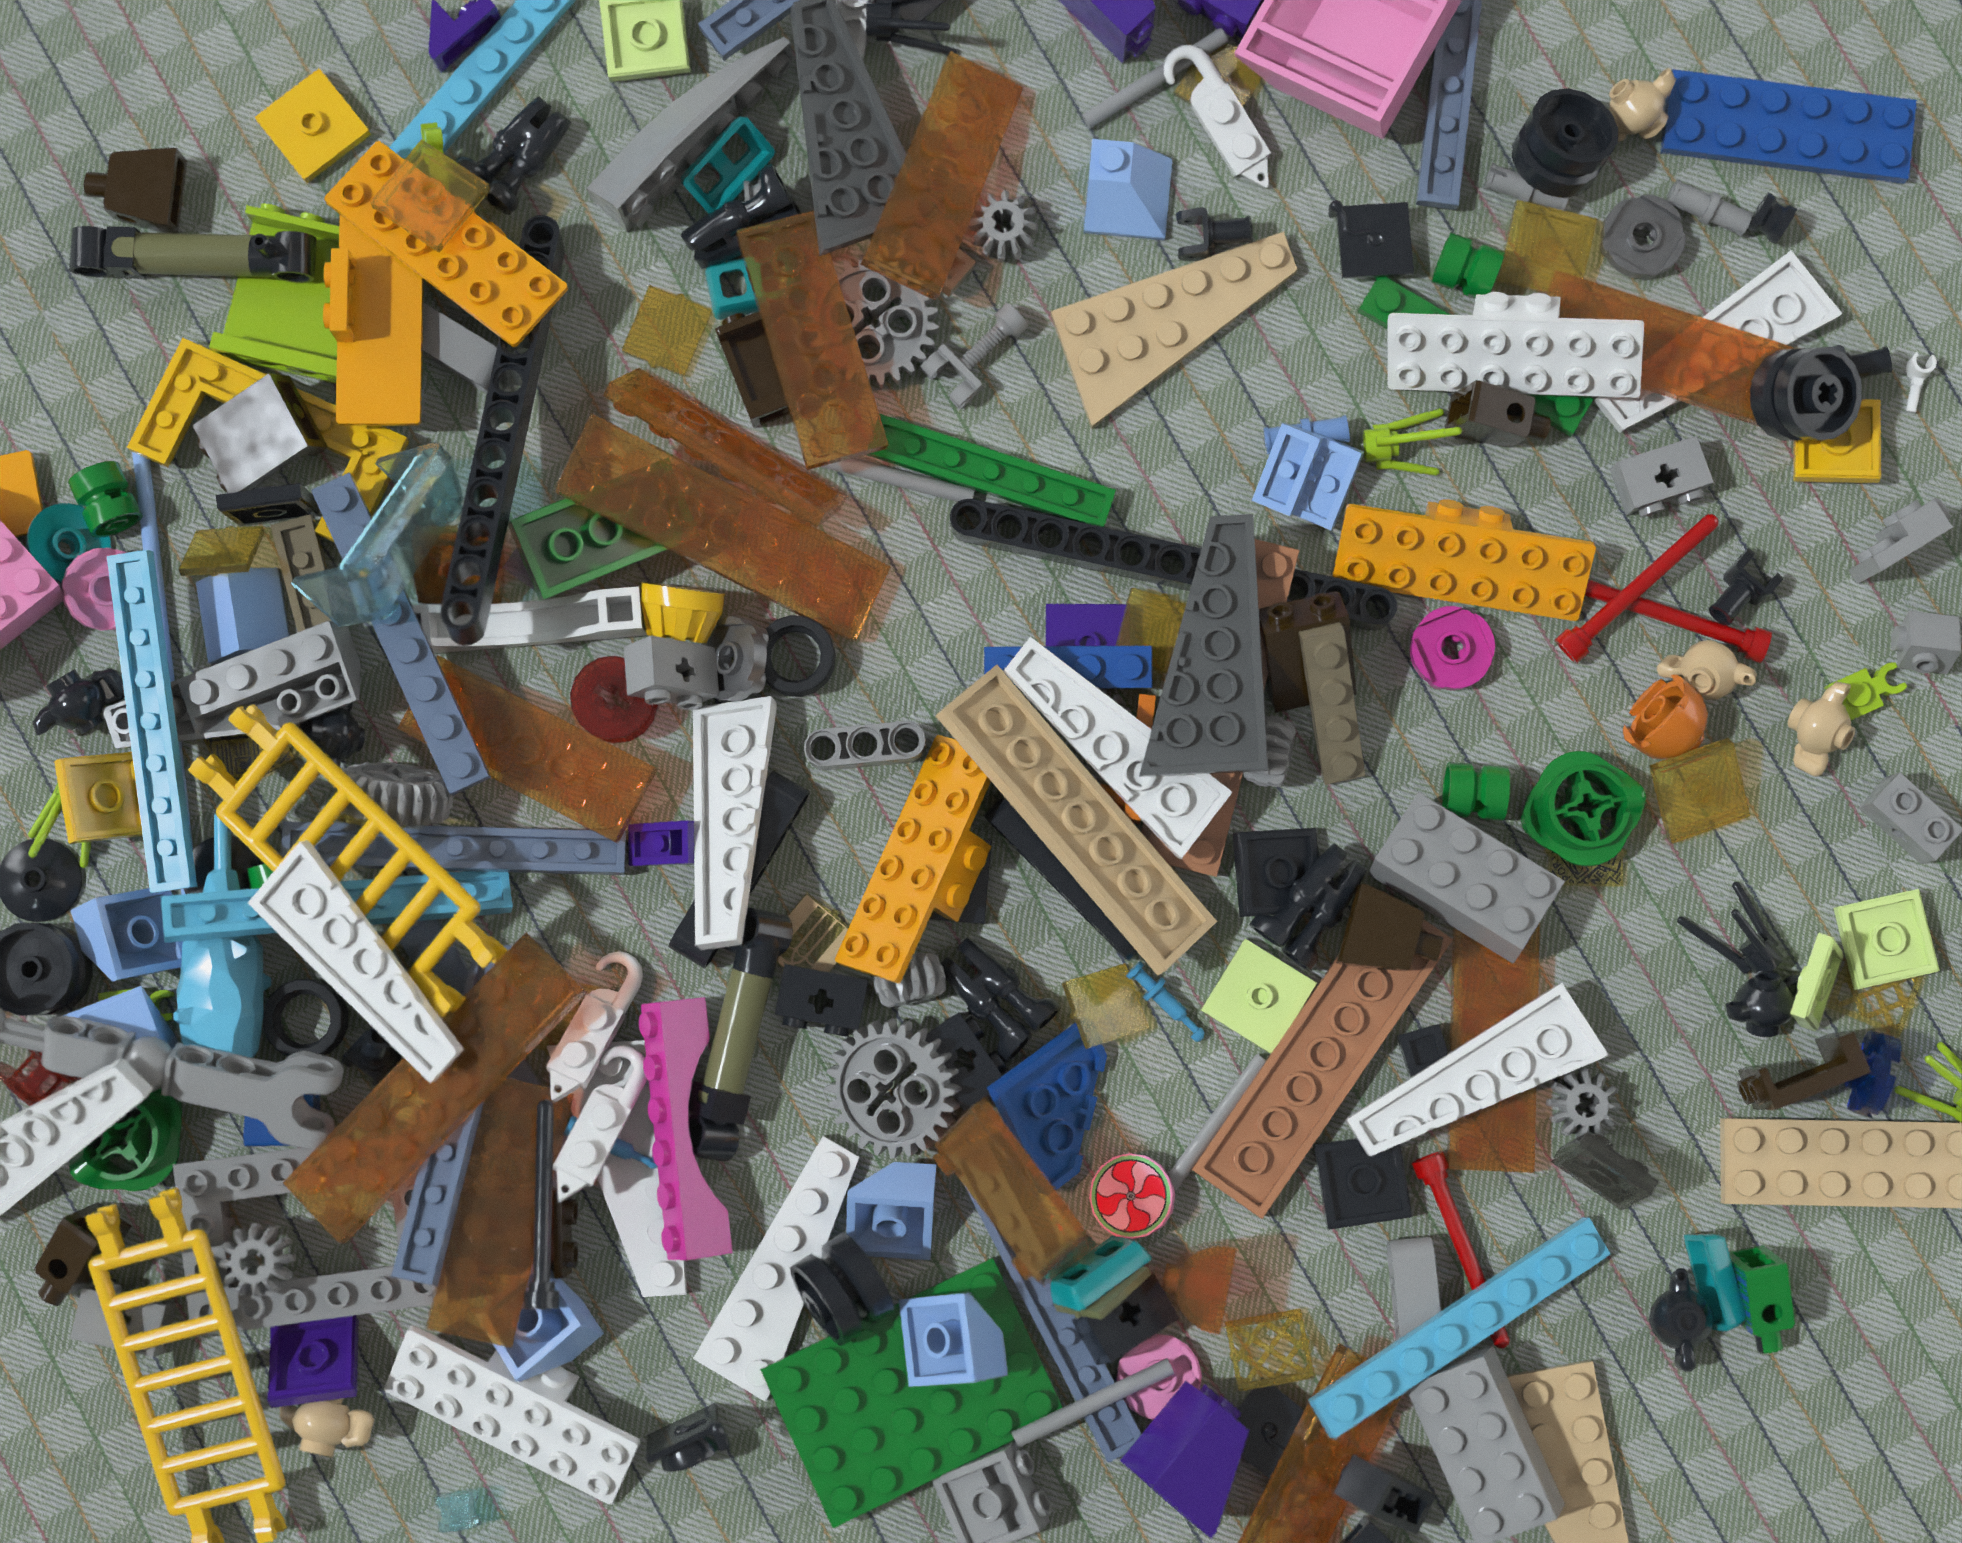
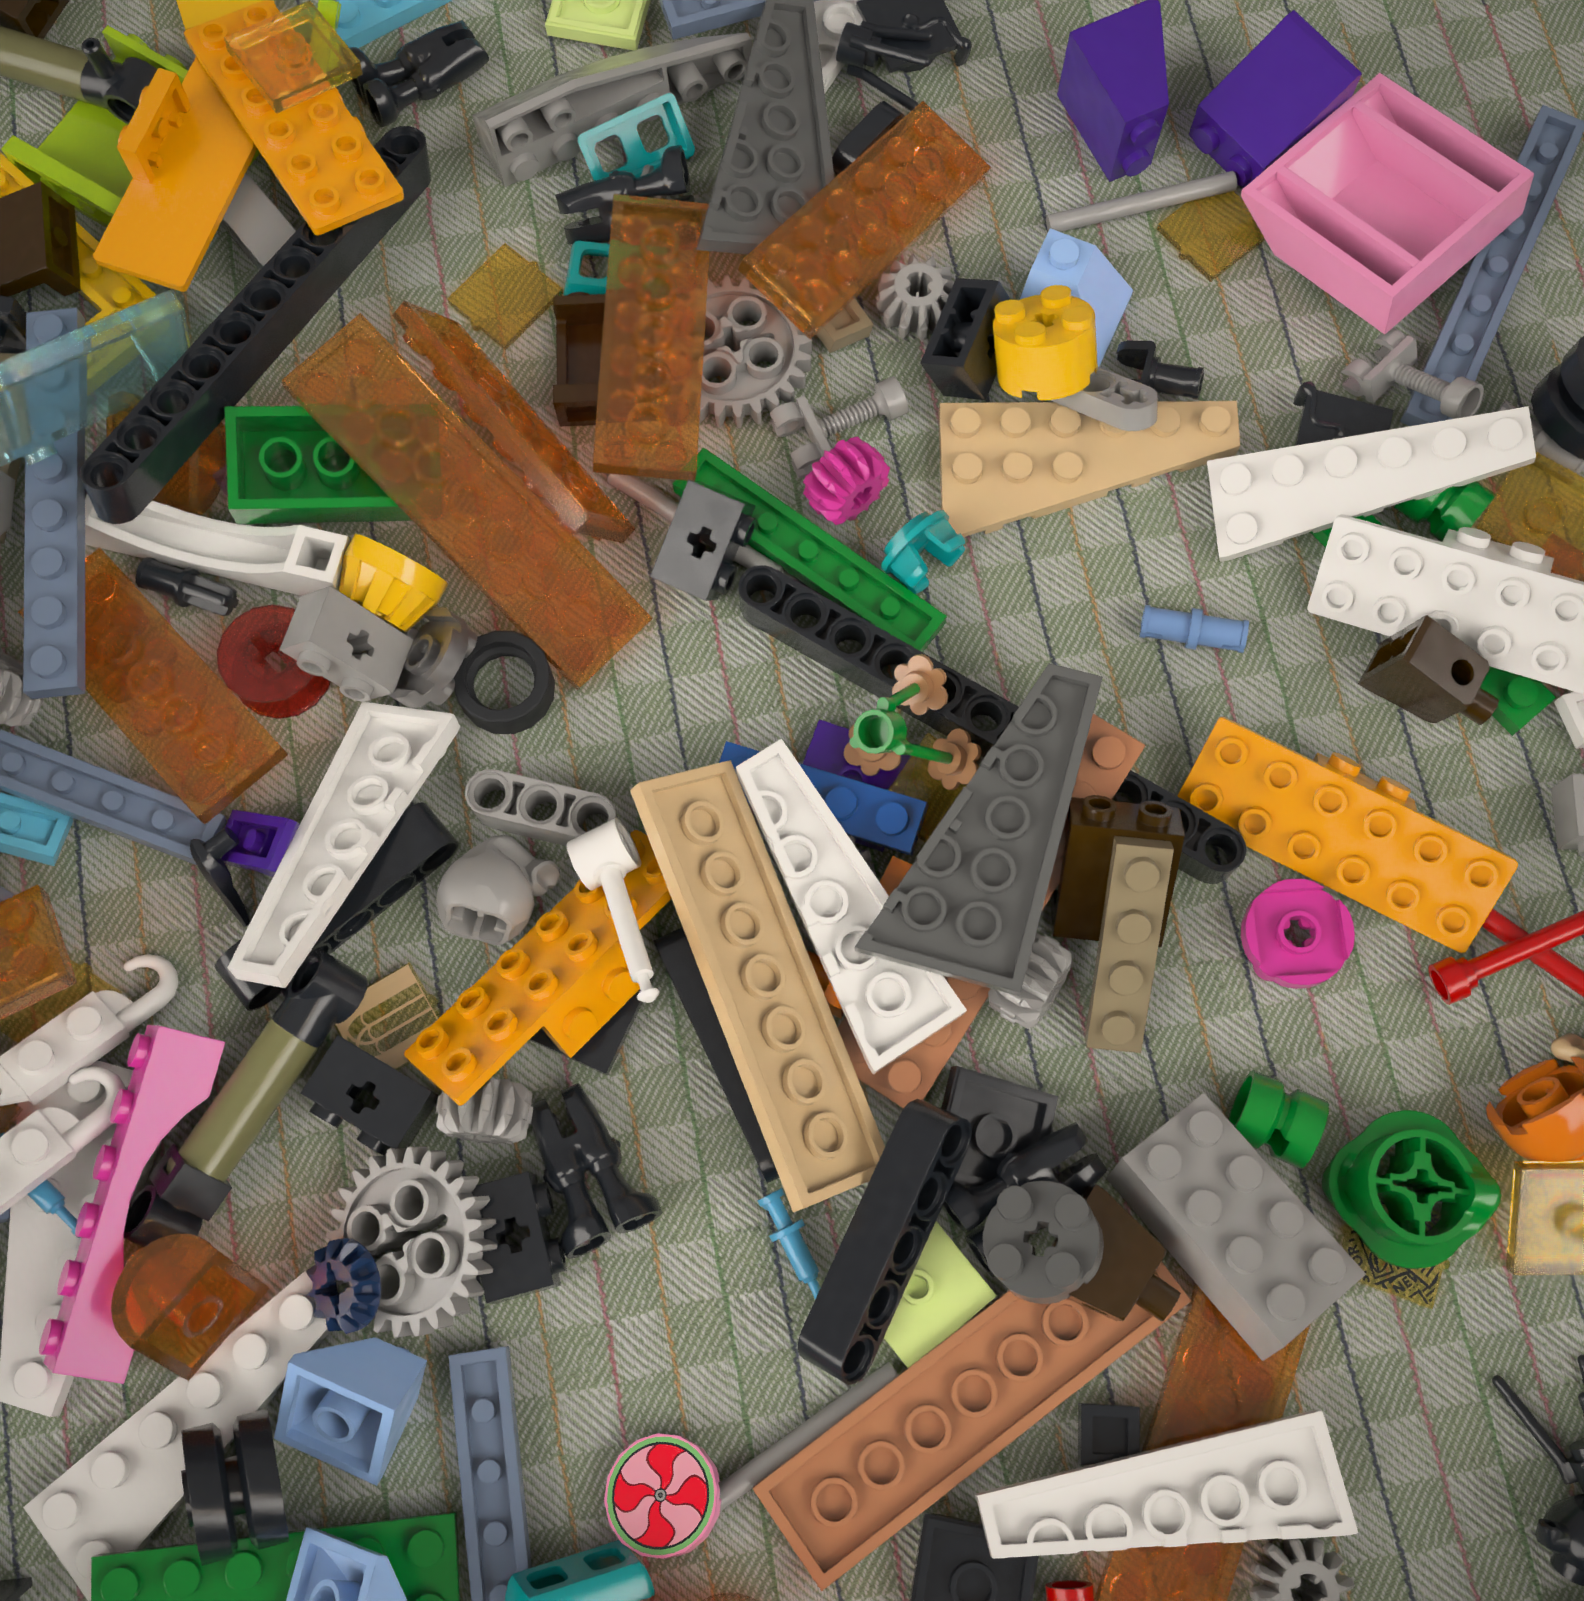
camera: 20 degrees right, 10 degrees down
(518, 663) = (186, 587): none -> black axle
(641, 877) = (209, 861): none -> black bar
(753, 1180) = (181, 1301): none -> clear orange brick
(851, 818) = (492, 890): none -> light grey piece
(855, 1117) = (345, 1261): none -> dark blue gear
(908, 518) = (684, 559): none -> brick
(915, 98) = (865, 134): none -> black beam
(930, 770) = (603, 860): none -> white piece
(1002, 406) = (846, 480): none -> dark pink gear
(1013, 1194) = (497, 1440): clear orange windscreen -> none
(1051, 1102) = (601, 1333): blue plate -> none
(1059, 252) = (962, 344): none -> black brick
(1086, 428) = (921, 533): none -> teal piece
(1105, 609) = (881, 733): none -> medium nougat plant
(1105, 1006) = (716, 1230): clear yellow piece -> none
(1121, 243) = (1045, 344): none -> yellow brick
(1182, 279) = (1115, 401): none -> light grey beam
(1223, 117) = (1206, 263): white plate -> none
(1227, 971) = (884, 1241): none -> black beam
(1307, 476) = (1181, 672): light blue slope -> none
(1356, 950) = (1063, 1268): none -> dark grey plate
(1362, 292) = (1304, 487): none -> white wing
(1384, 441) = (1284, 667): lime plant -> none
(1454, 183) = (1396, 359): none -> light grey bar

